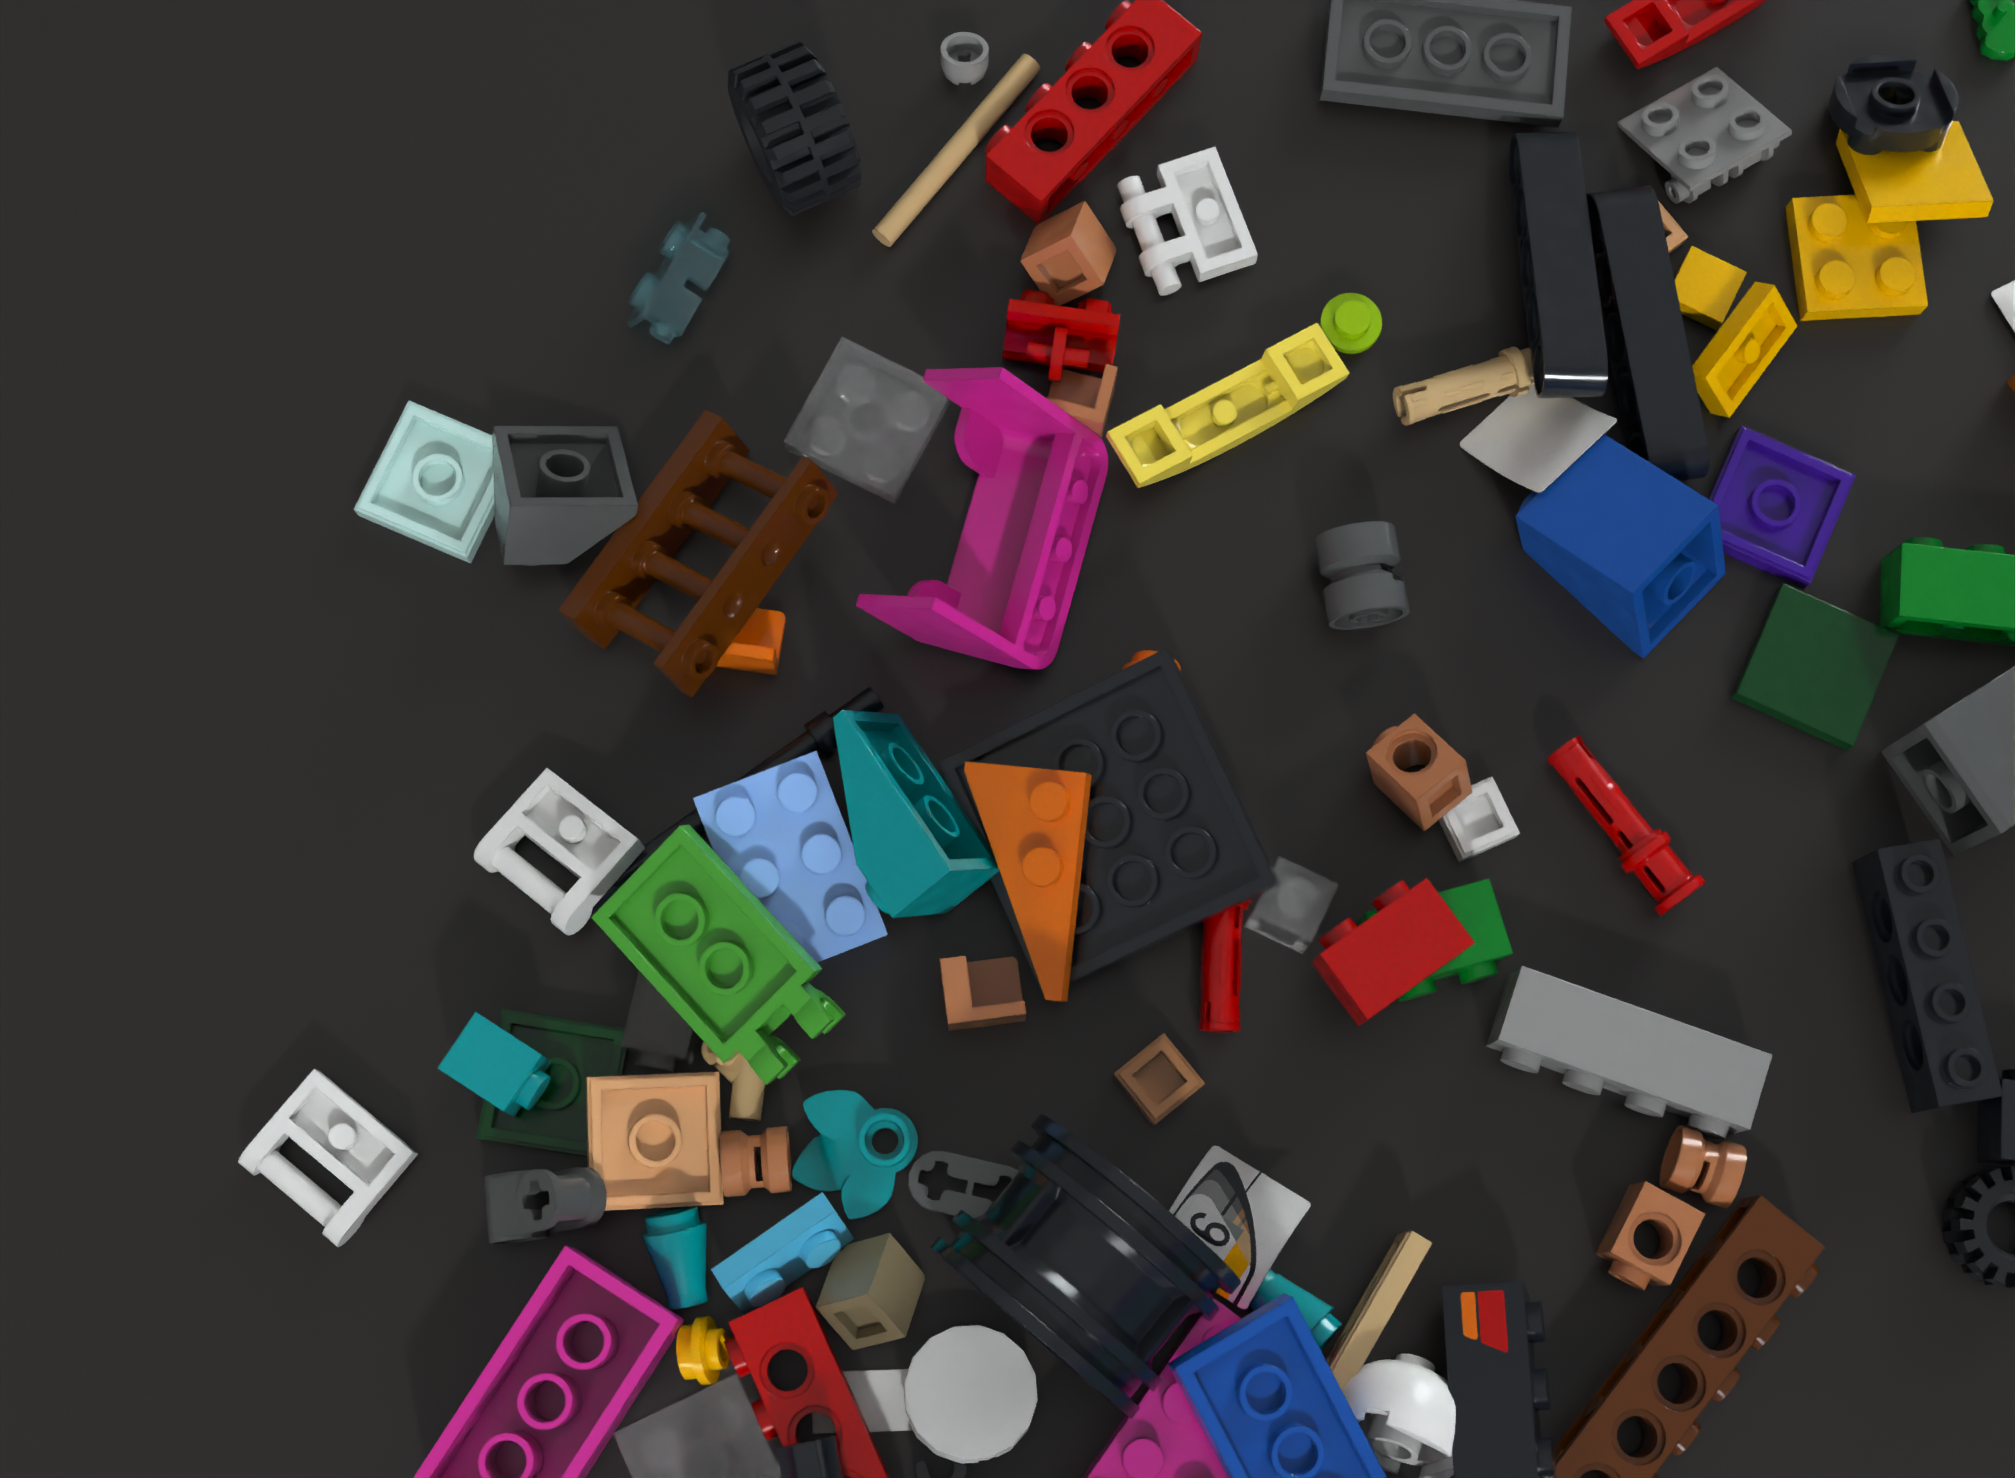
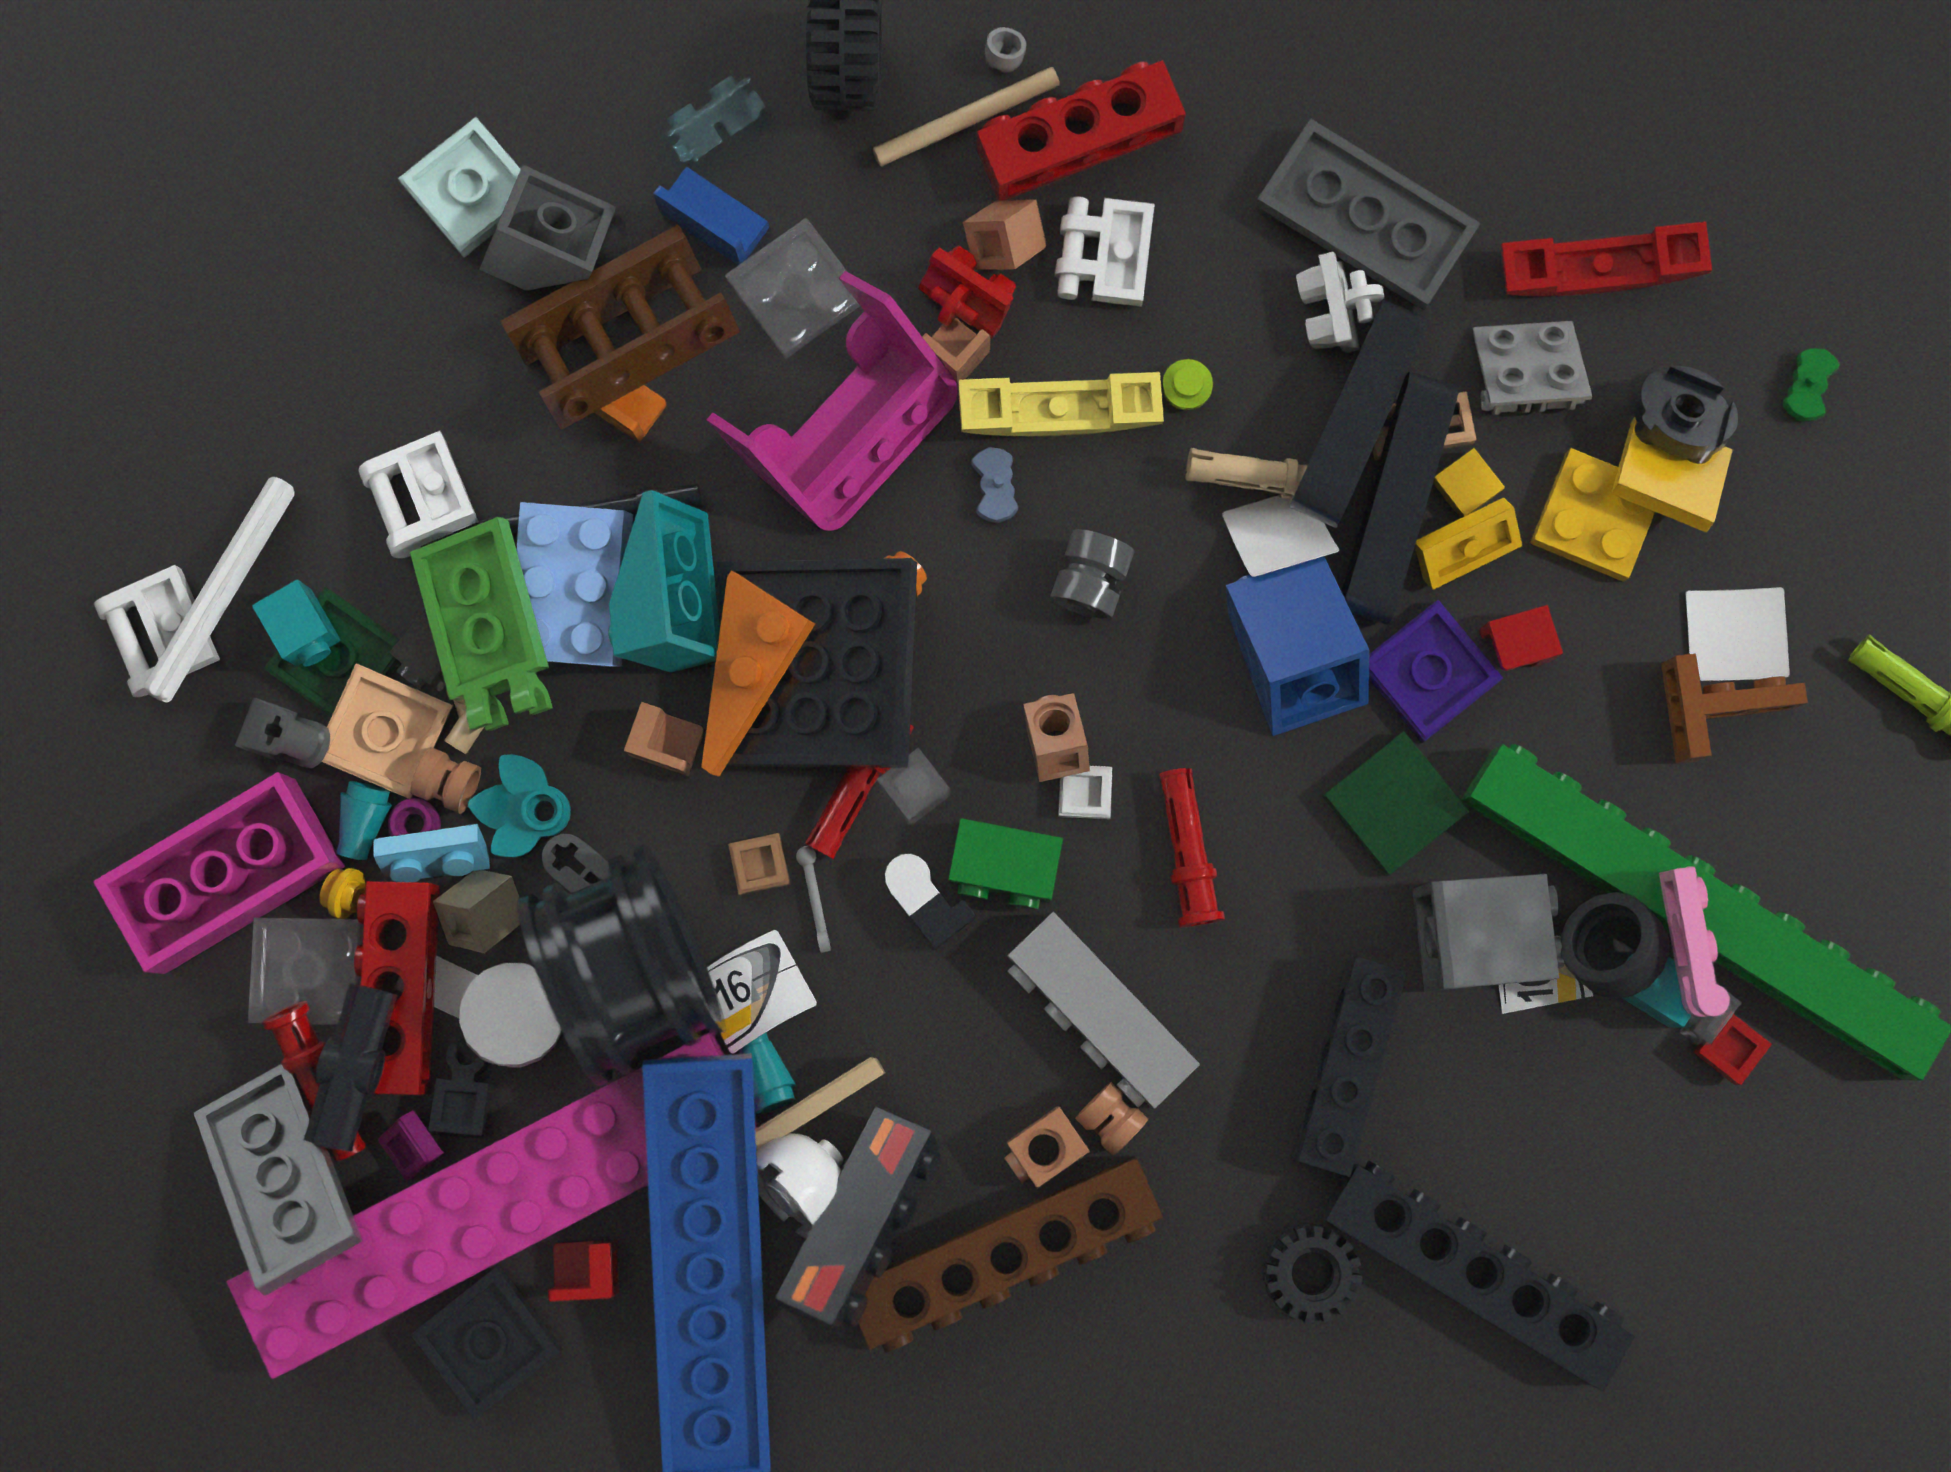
camera: 30 degrees right, 5 degrees up
(382, 1073) = (219, 590): none -> white axle
(730, 1212) = (408, 808): none -> magenta plate
(732, 386) = (711, 216): none -> blue panel
(1199, 531) = (996, 486): none -> sand blue piece
(1207, 1045) = (806, 857): none -> light grey hinge
(1383, 1040) = (912, 888): none -> leg
(1390, 950) = (959, 852): red brick -> none
(1445, 142) = (1330, 283): none -> white hips
(1859, 420) = (1524, 638): none -> red panel

